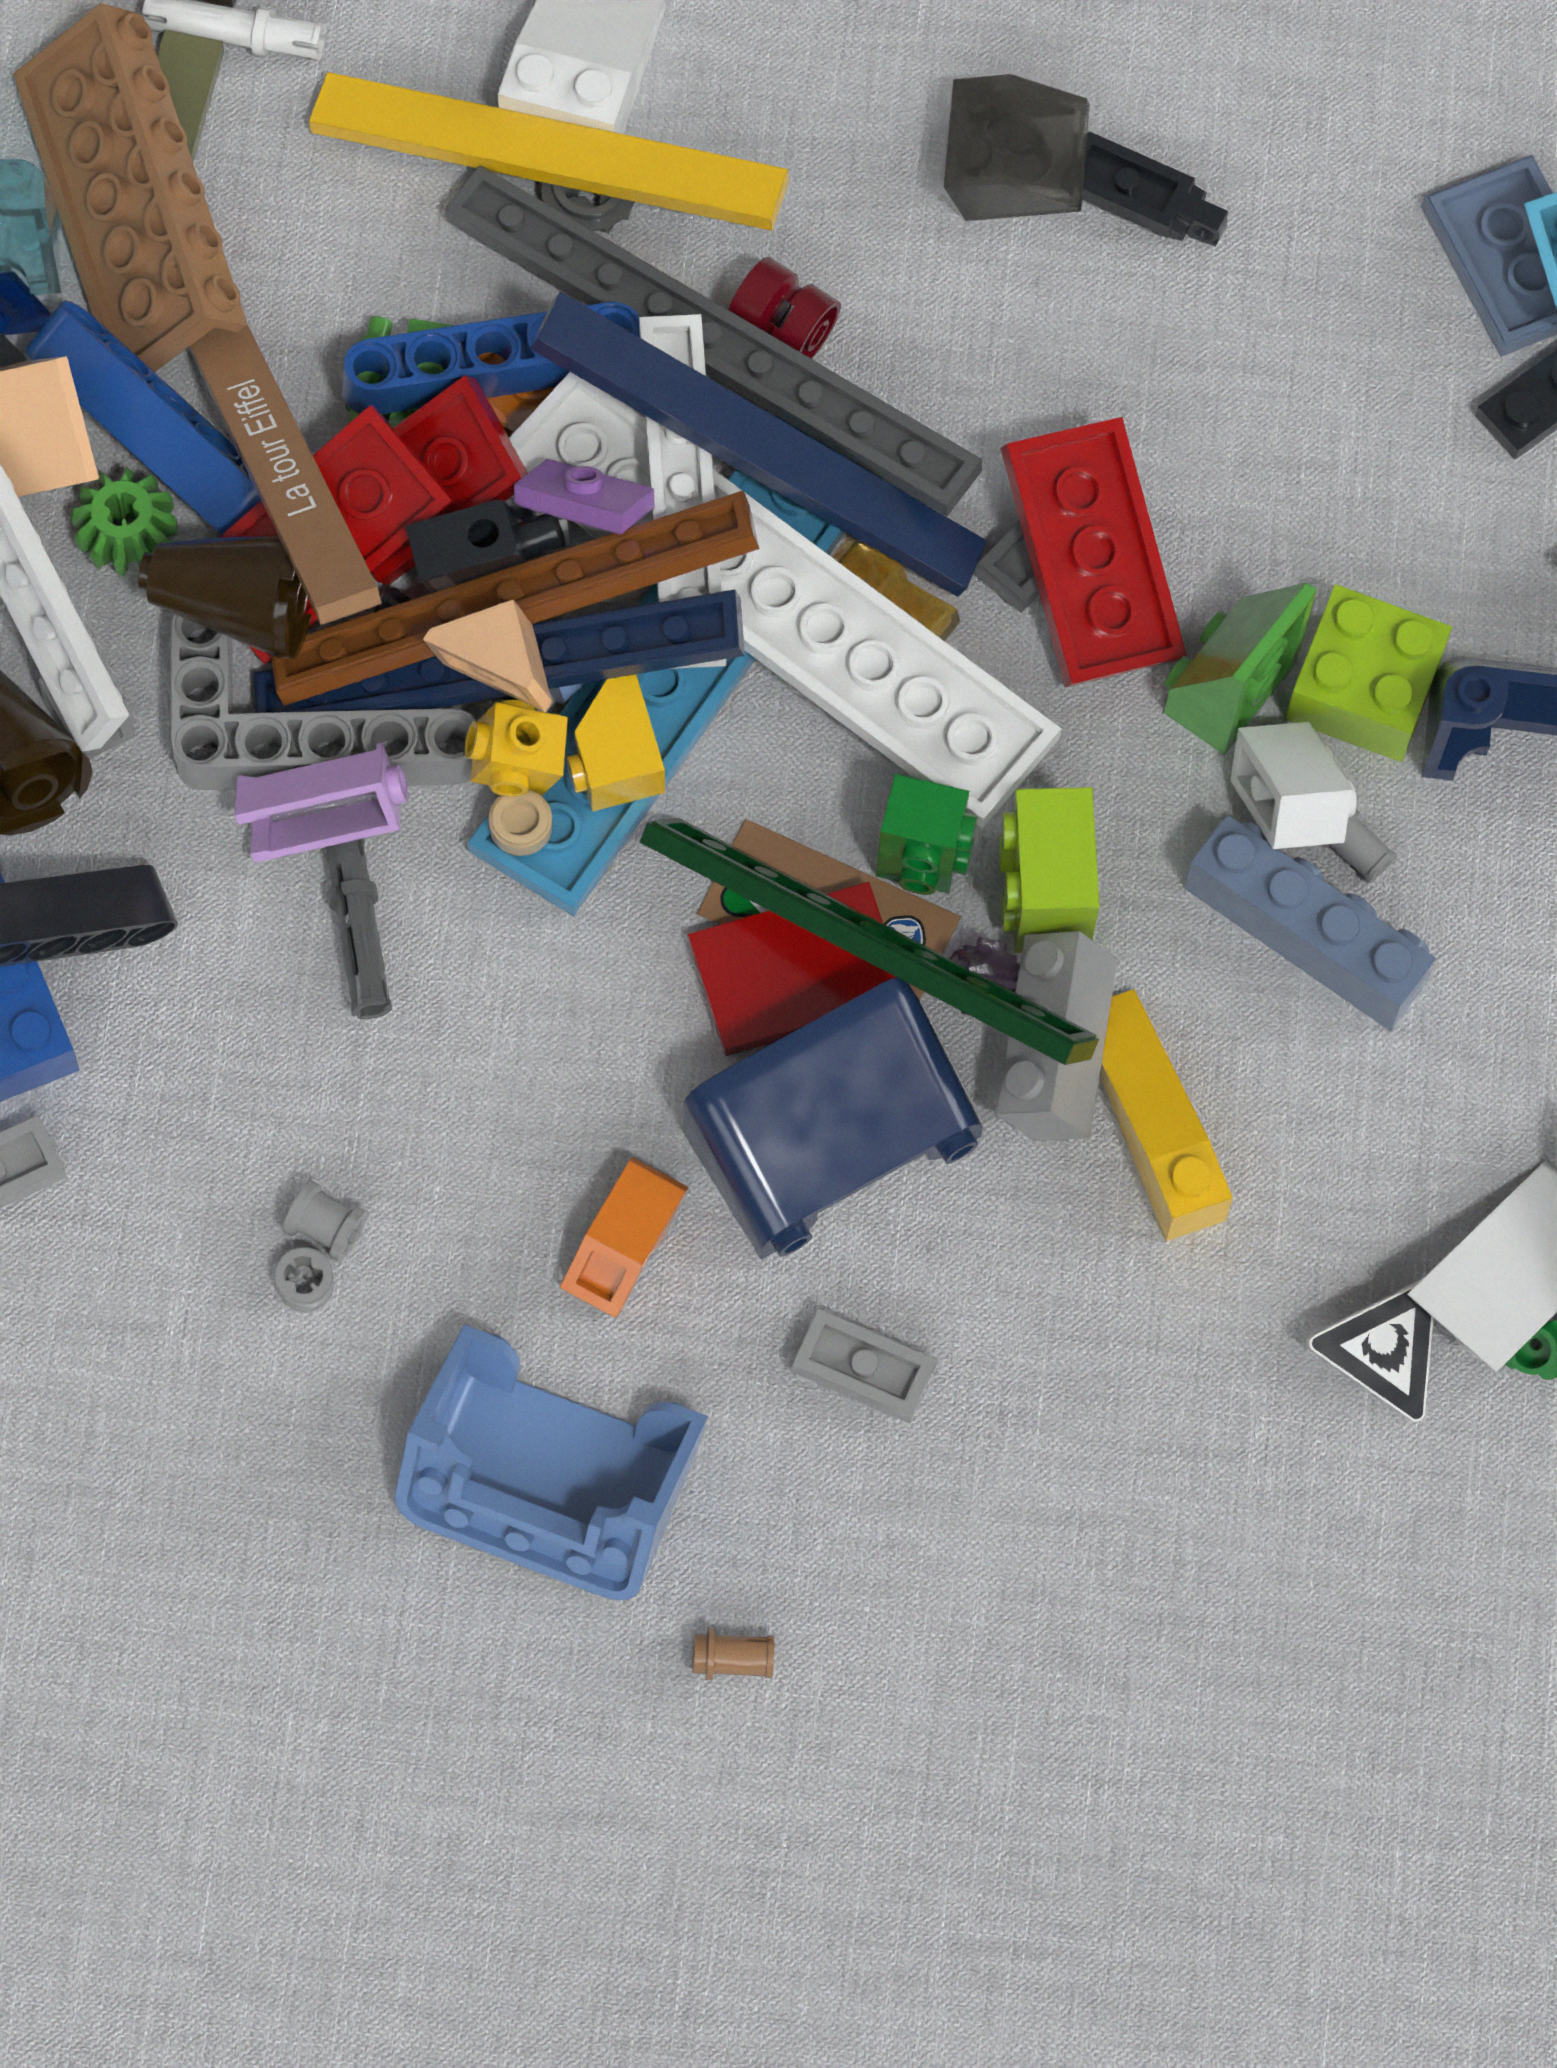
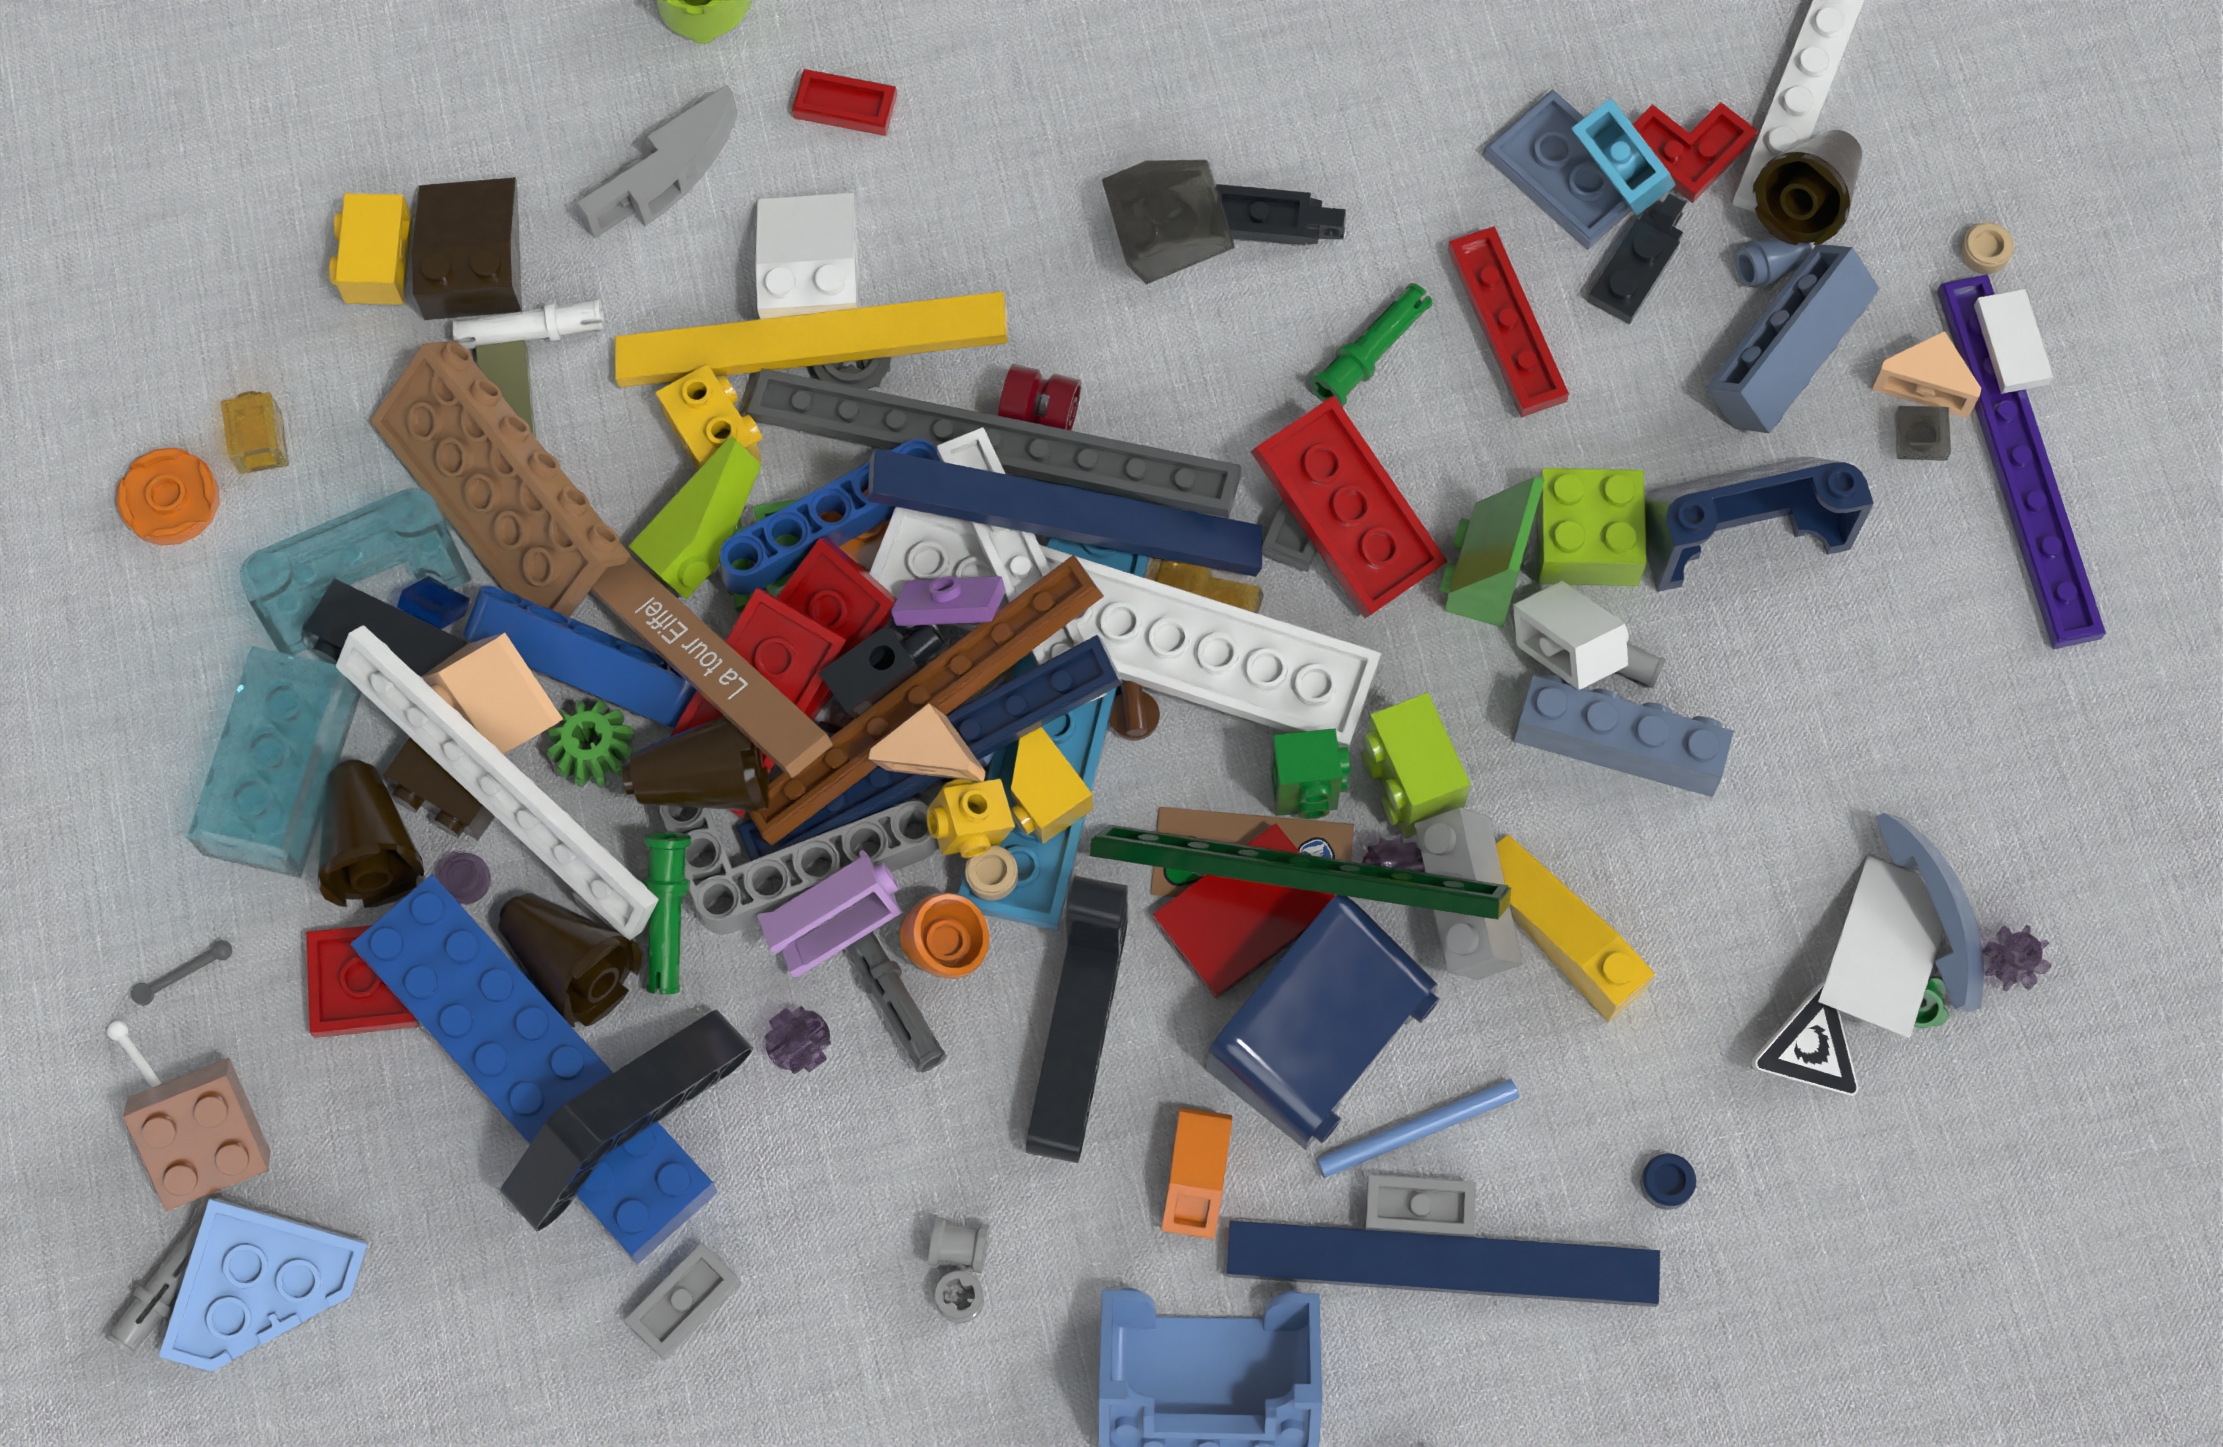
camera: 15 degrees left, 0 degrees up
(148, 705) = (668, 884): none -> green pin
(230, 931) = (797, 1040): none -> clear purple gear
(355, 301) = (690, 530): none -> lime slope
(396, 210) = (704, 415): none -> yellow brick
(441, 873) = (945, 936): none -> orange hat
(612, 936) = (1080, 1018): none -> black beam
(756, 702) = (1134, 713): none -> reddish brown plate
(866, 1439) = (1443, 1263): none -> dark blue tile
(897, 1279) = (1417, 1128): none -> medium blue bar
(1161, 1440) = (1668, 1181): none -> dark blue tile
(1174, 390) = (1357, 360): none -> green pin
(1369, 405) = (1508, 321): none -> red plate

